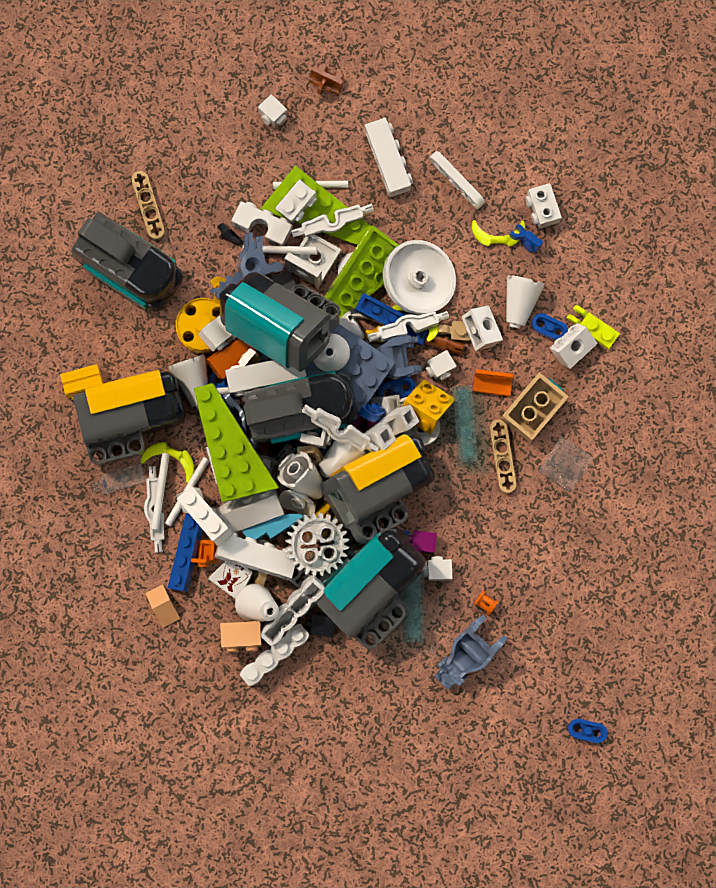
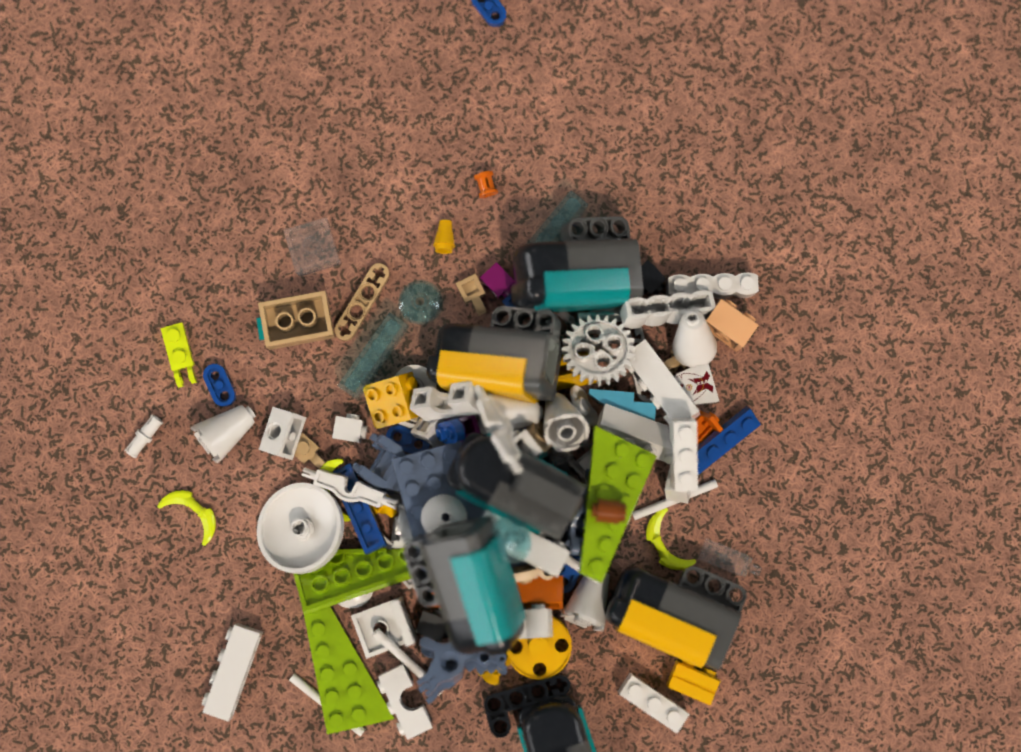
camera: 140 degrees left, 5 degrees up
(88, 347) = (653, 703): none -> white arch
(156, 535) = (709, 516): white piece -> none
(160, 491) = (701, 517): white bar -> none
(162, 606) = (777, 412): light nougat slope -> none
(183, 288) = (528, 699): none -> black beam
(225, 435) = (608, 511): none -> dark orange brick
(229, 235) = (443, 716): black bar -> none
(272, 360) = (512, 539): none -> clear light blue dish
(296, 202) = (355, 696): white bracket -> none
(342, 217) = (324, 645): white piece -> none
(435, 522) = (471, 291): none -> tan plate
(438, 569) = (502, 245): white brick -> none
(446, 344) = (327, 446): dark orange pin -> none
(457, 179) = (186, 596): white beam -> none
(457, 495) = (420, 313): none -> clear light blue dish
(467, 655) = (539, 147): sand blue animal -> none
(483, 543) = (444, 238): none -> yellow cone
(492, 382) = (315, 375): orange panel -> none
(529, 240) = (168, 483): blue plate -> none
(543, 205) = (127, 504): white brick -> none
(570, 257) = (143, 436): none -> white pin
(583, 343) = (212, 349): white brick -> none

